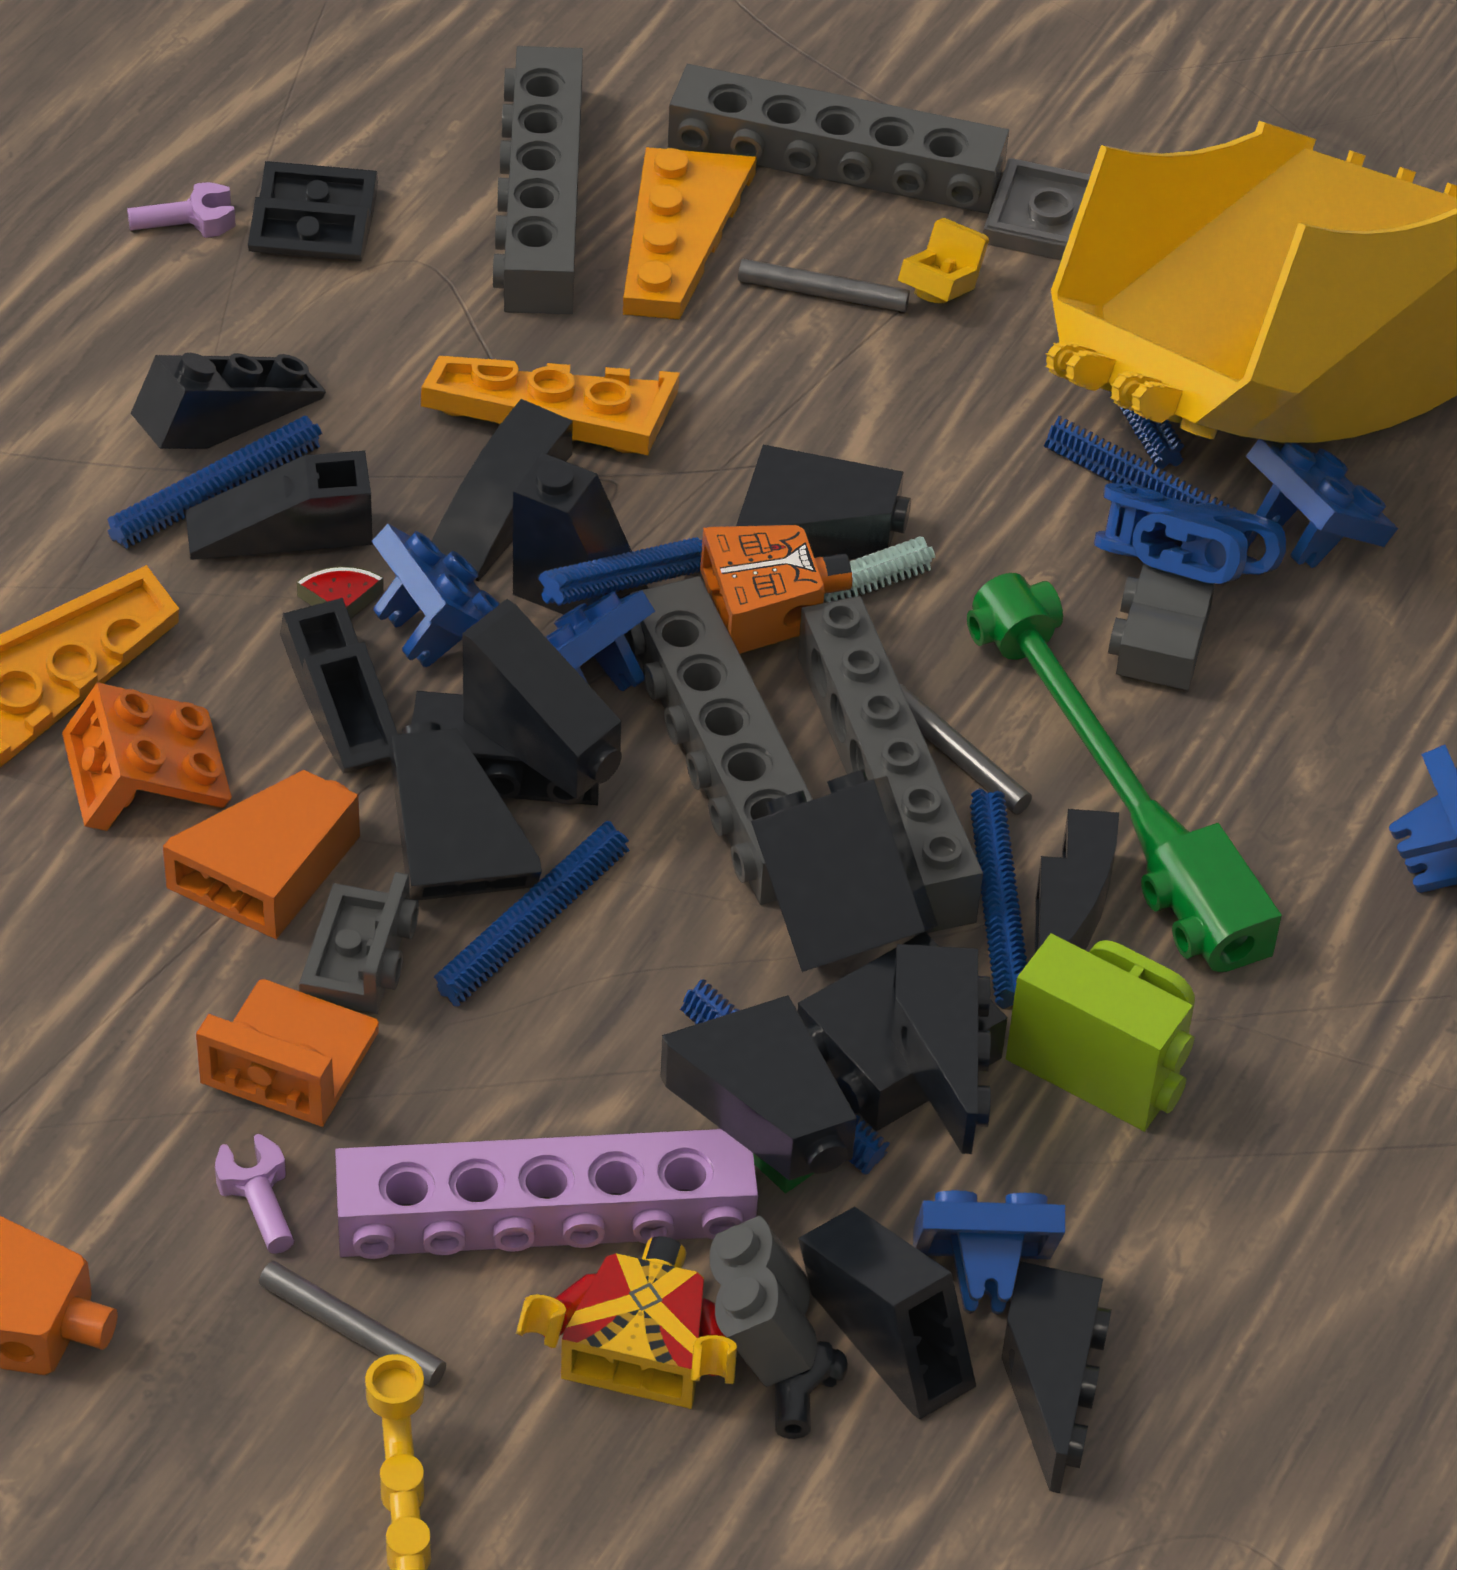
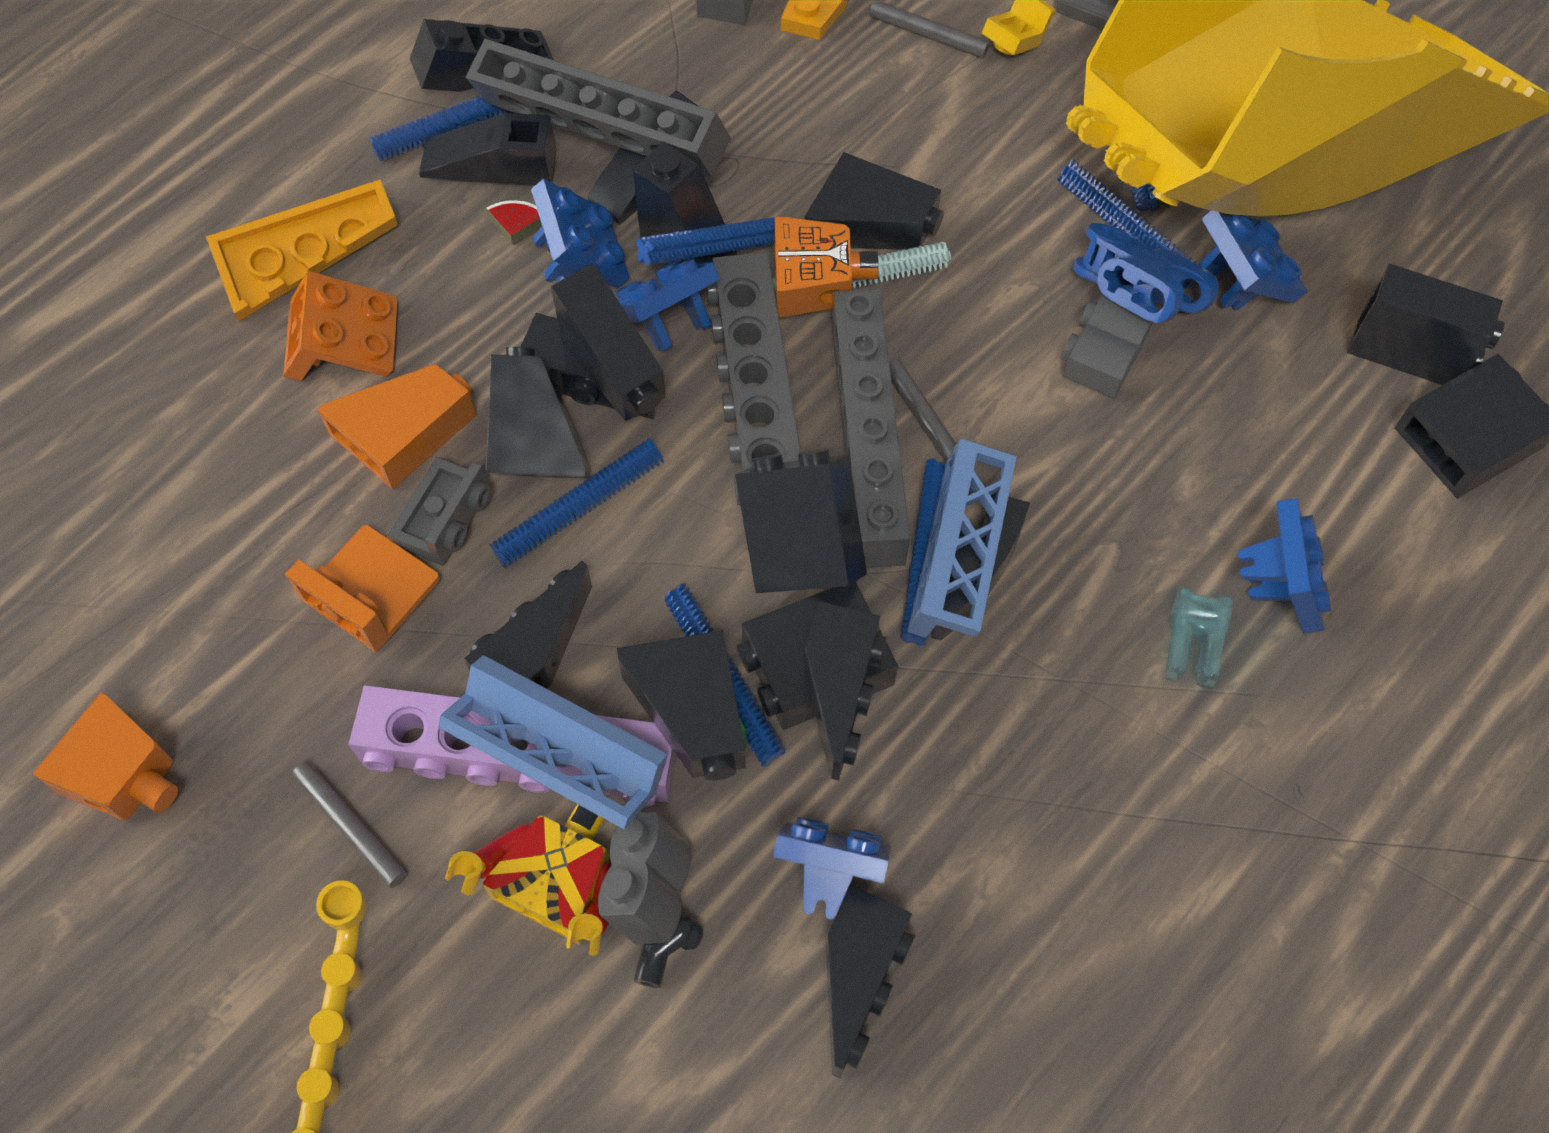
camera: 15 degrees right, 15 degrees up
(256, 1186) = (314, 697): lavender bar -> none
(339, 684) = (490, 293): black slope -> none
(423, 426) = (597, 105): none -> dark grey brick
(527, 1077) = (538, 630): none -> black slope
(603, 409) = (743, 104): light orange wing -> none
(613, 1153) = (562, 736): none -> medium blue fence
(892, 1308) = (744, 899): black slope -> none
(1023, 853) = (944, 540): none -> medium blue fence
(1103, 1027) = (971, 687): lime brick -> none
(1194, 873) = (1075, 558): green bar -> none
(1367, 919) = (1208, 621): none -> clear light blue piece

